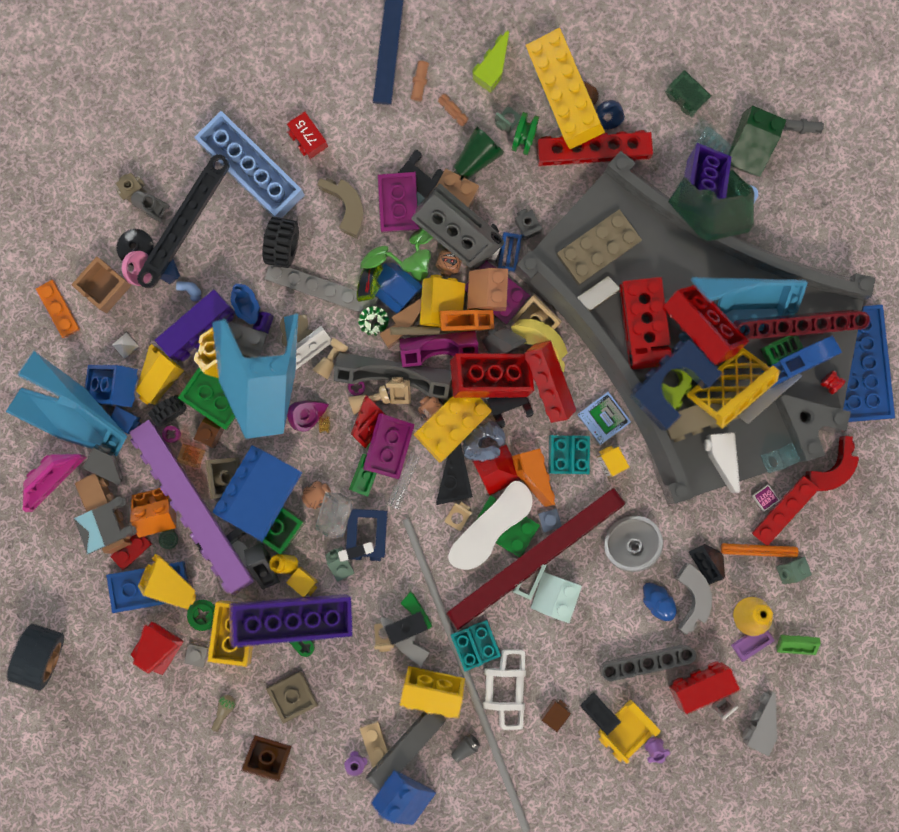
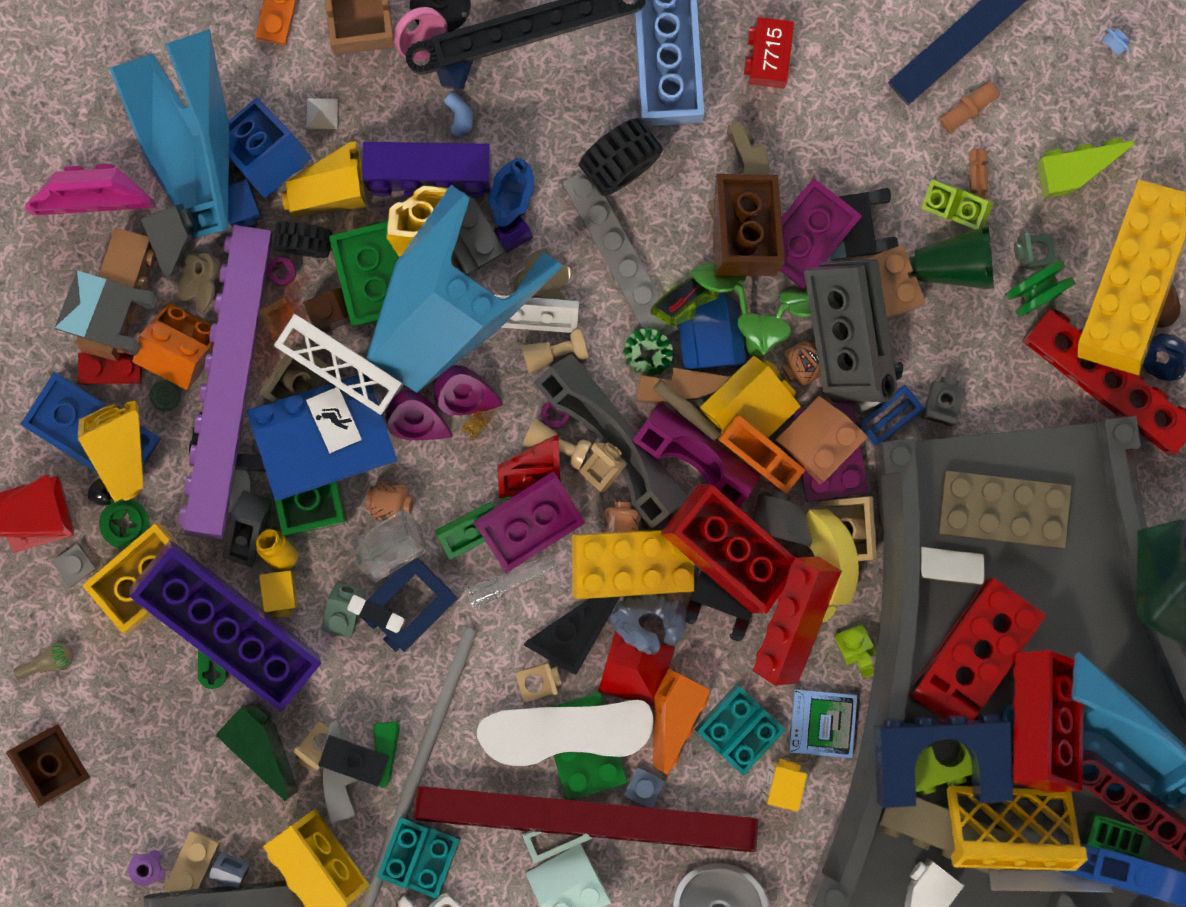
camera: 35 degrees right, 0 degrees up
(135, 471) = (199, 278): none -> dark tan plate
(178, 612) = (99, 494): none -> black hinge
(239, 444) = (344, 353): none -> white fence
(255, 480) = (333, 419): none -> white sticker
(292, 696) = (143, 718): dark tan tile -> none
(293, 446) = (415, 418): none -> magenta piece
(354, 660) = (258, 744): none -> dark green slope
(367, 222) = (747, 225): none -> reddish brown slope
(394, 730) = (229, 870): none -> sand blue plate
(453, 129) = (957, 205): none -> lime slope
(588, 370) = (857, 647): none -> lime plate

